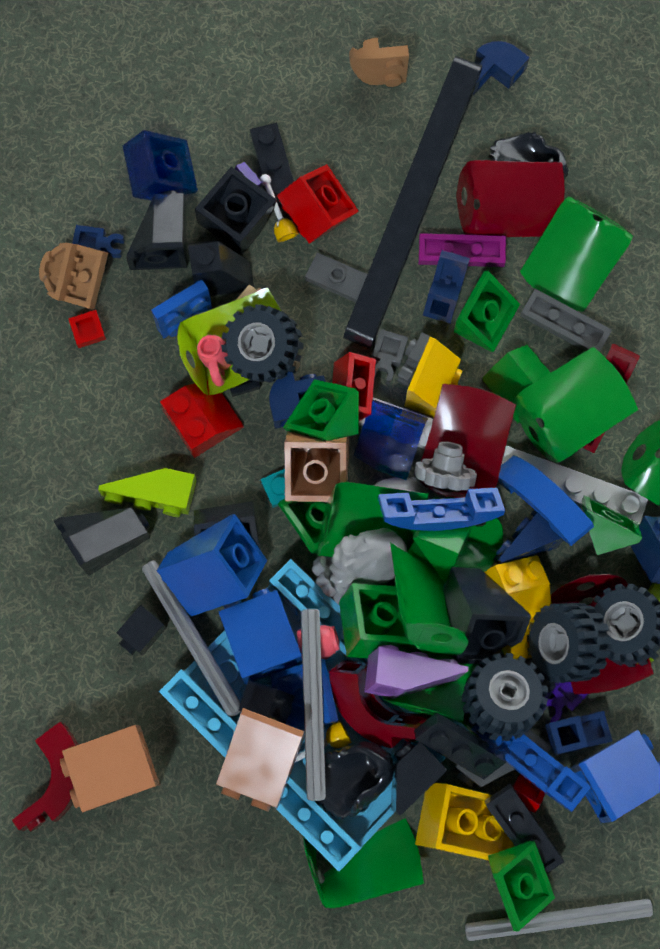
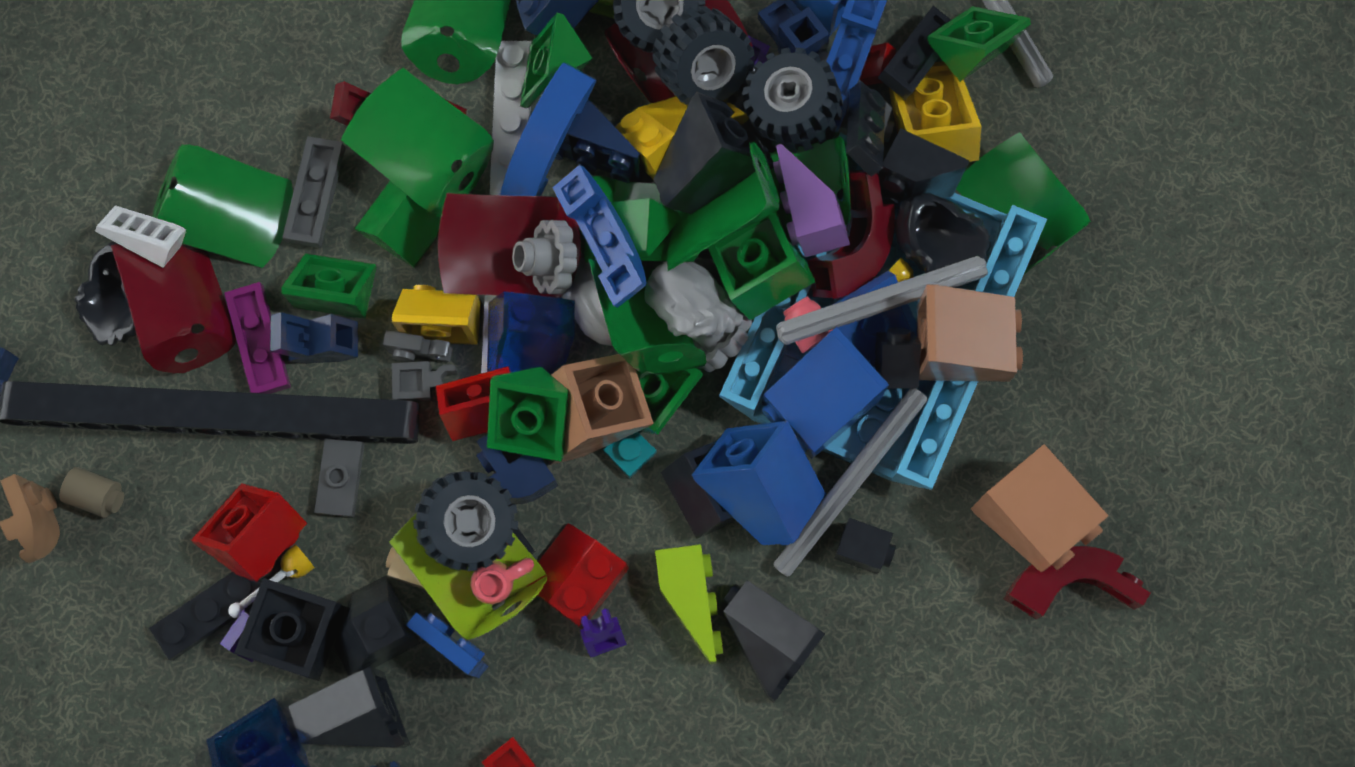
camera: 105 degrees left, 0 degrees up
(150, 419) = (601, 634): none -> dark purple plate
(387, 109) = (91, 492): none -> dark tan brick
(552, 186) = (152, 237): none -> white slope

